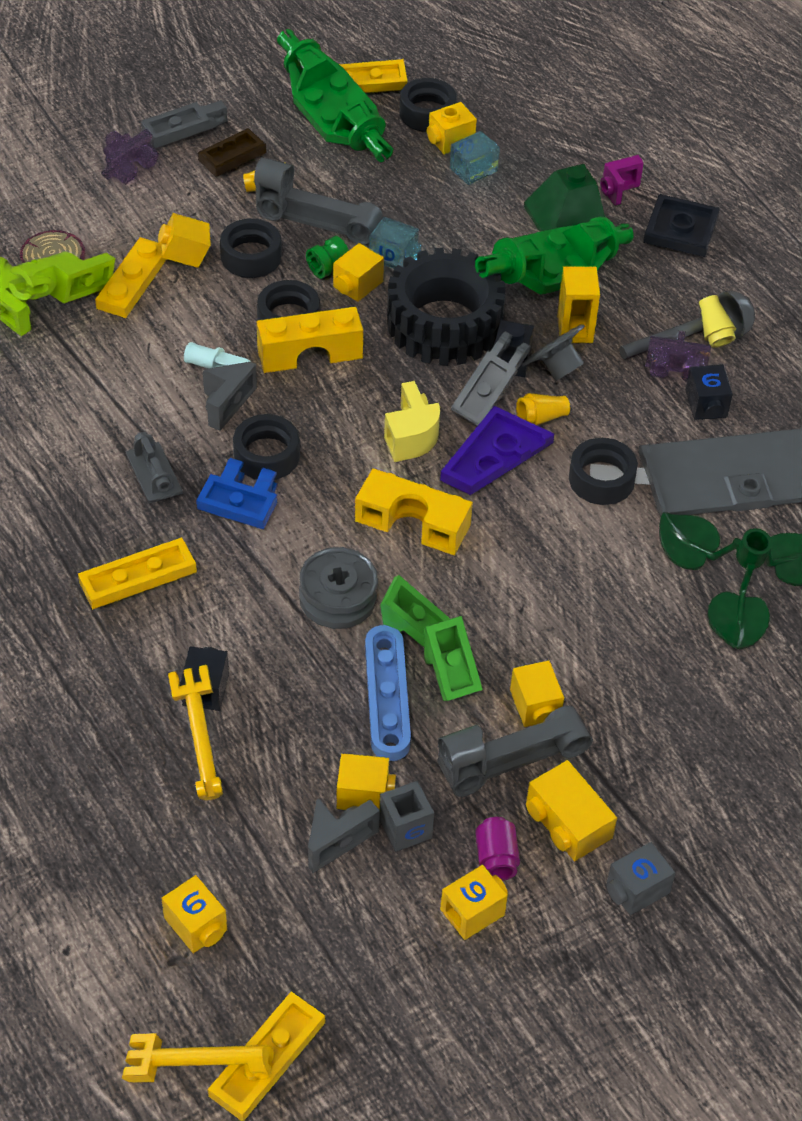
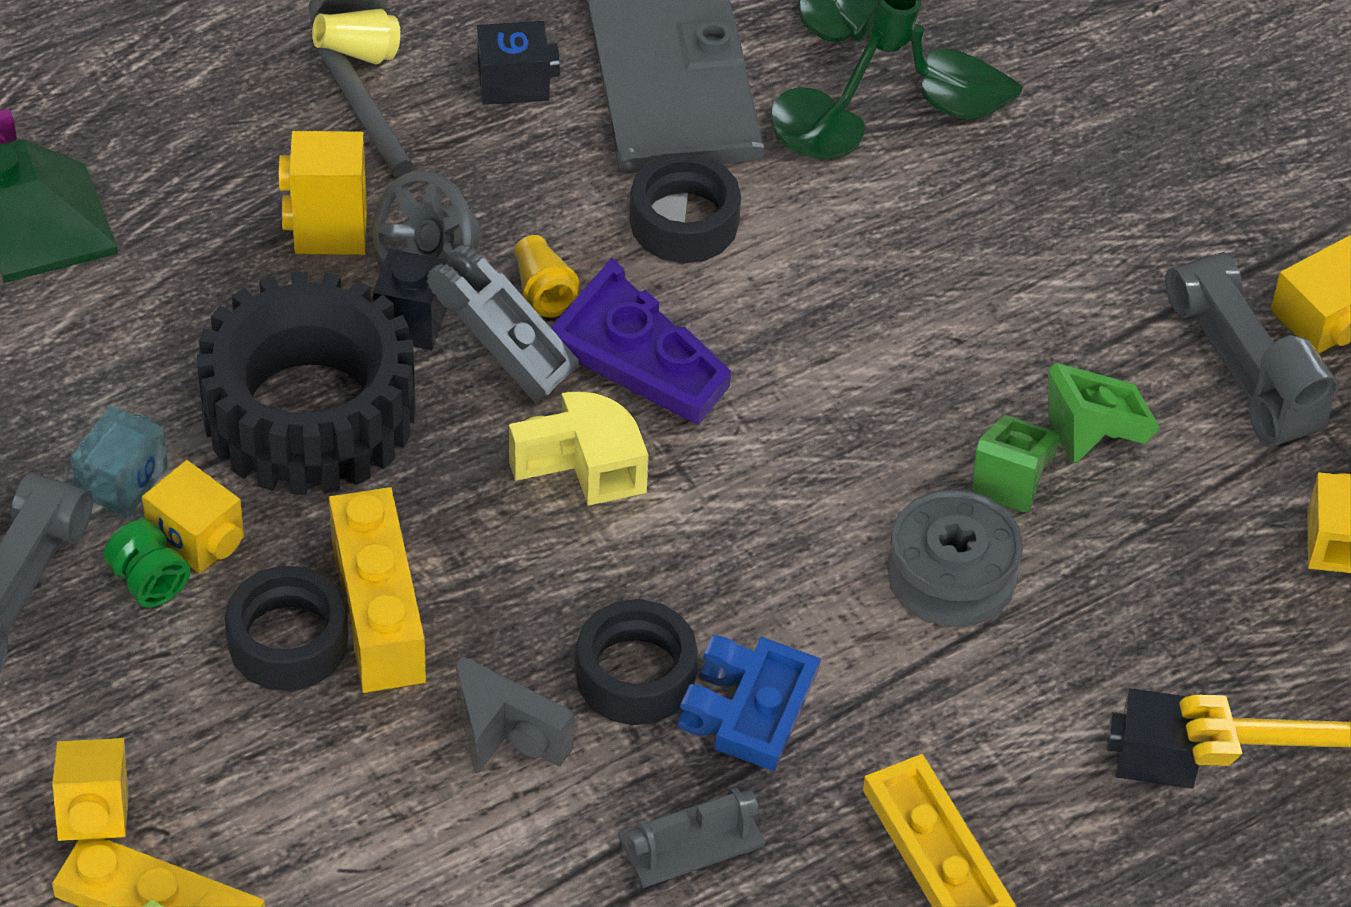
camera: 90 degrees left, 0 degrees up
(210, 357) = (414, 741): light aqua axle -> none
(250, 264) = (96, 650): black tyre -> none
(387, 693) = (1153, 500): medium blue plate -> none
(390, 497) = (796, 414): yellow arch -> none
(535, 692) = (1142, 315): yellow brick -> none
(540, 256) = (188, 219): green plate -> none
(675, 355) = (425, 91): clear purple hips -> none
(681, 225) = (99, 61): black plate -> none

